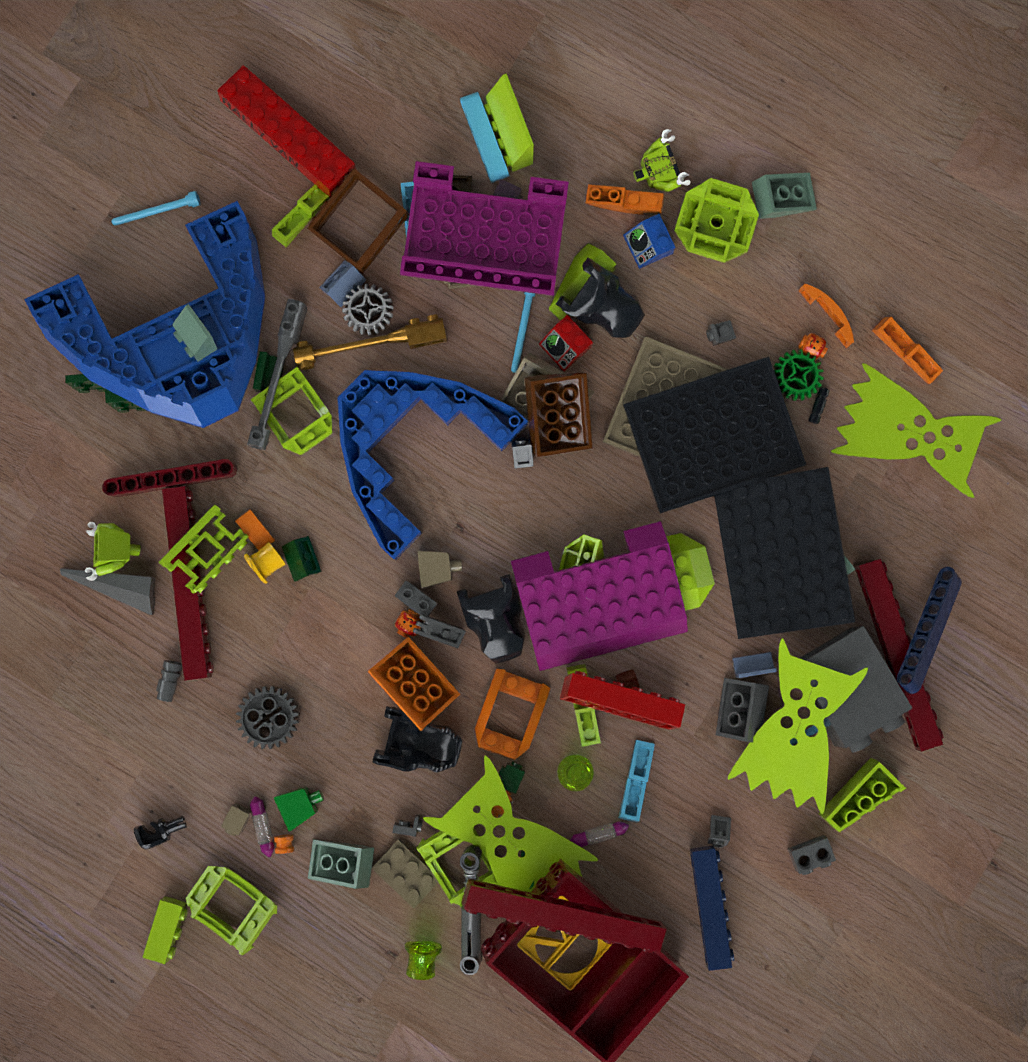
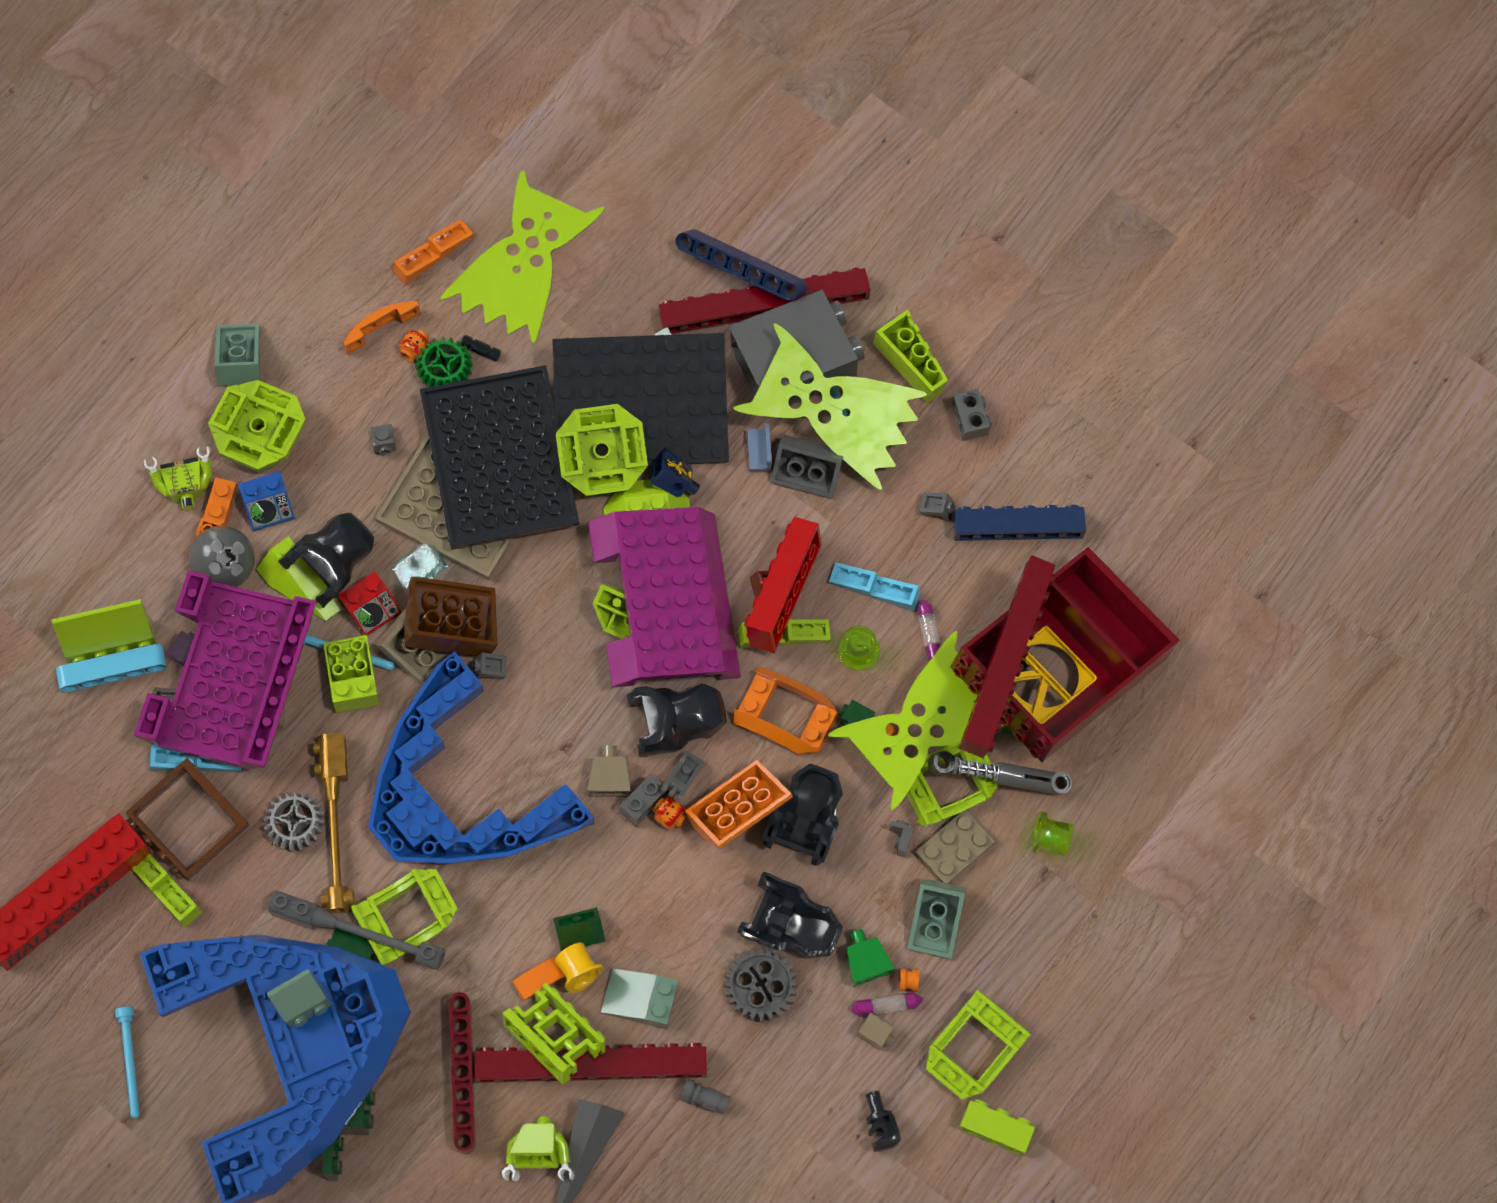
camera: 90 degrees left, 15 degrees down
(246, 617) = (640, 997): none -> sand green slope
(319, 738) = (792, 920): none -> black animal
(341, 282) = (256, 848): sand blue panel -> none
(501, 336) = (351, 674): none -> lime slope
(602, 211) = (210, 556): none -> dark grey piece
(608, 389) = (430, 564): none -> clear light blue brick
(708, 519) = (596, 426): none -> lime piece
(716, 590) = (673, 474): none -> dark blue torso

